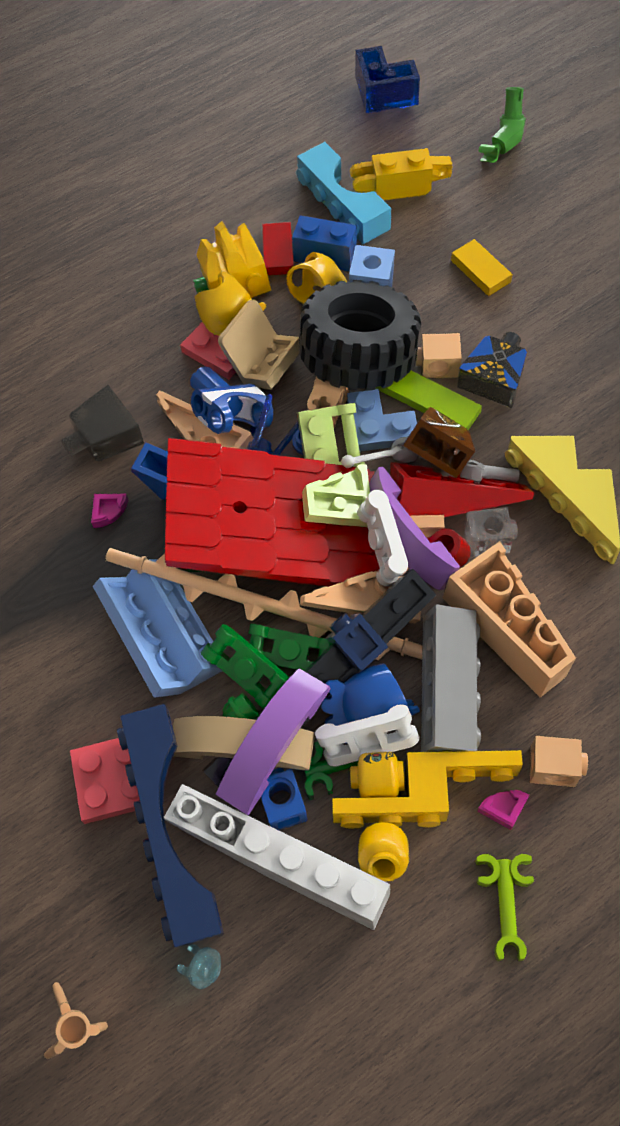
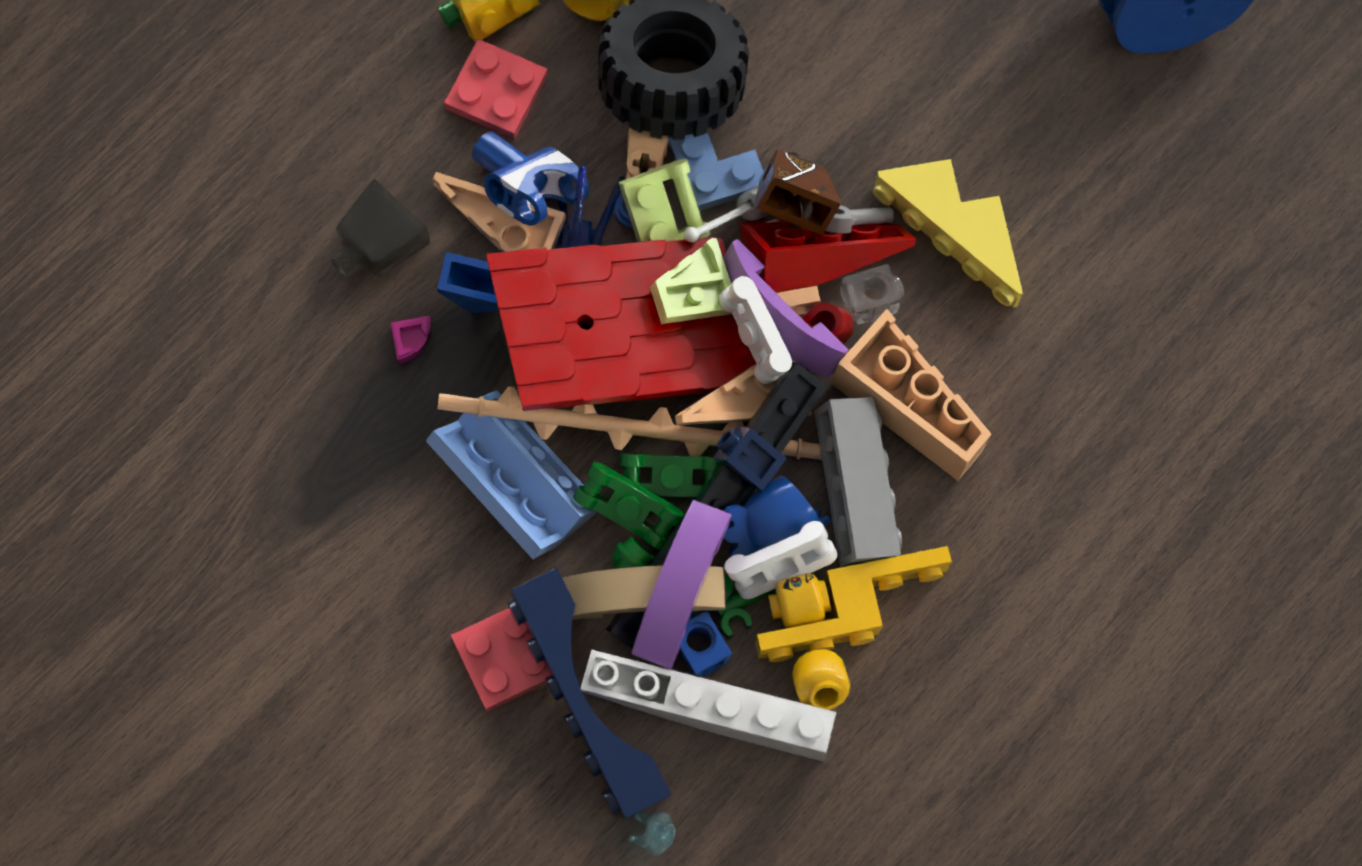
camera: 20 degrees left, 10 degrees up
(220, 305) = (501, 51): yellow piece -> none
(255, 348) = (550, 101): tan bracket -> none
(424, 393) = (779, 130): lime tile -> none
(439, 355) = (773, 70): light nougat brick -> none
(494, 369) = (843, 78): clear smoke torso -> none
(504, 807) = (938, 608): dark pink tile -> none
(505, 873) = (951, 677): lime bar -> none
(557, 761) = (986, 549): light nougat brick -> none

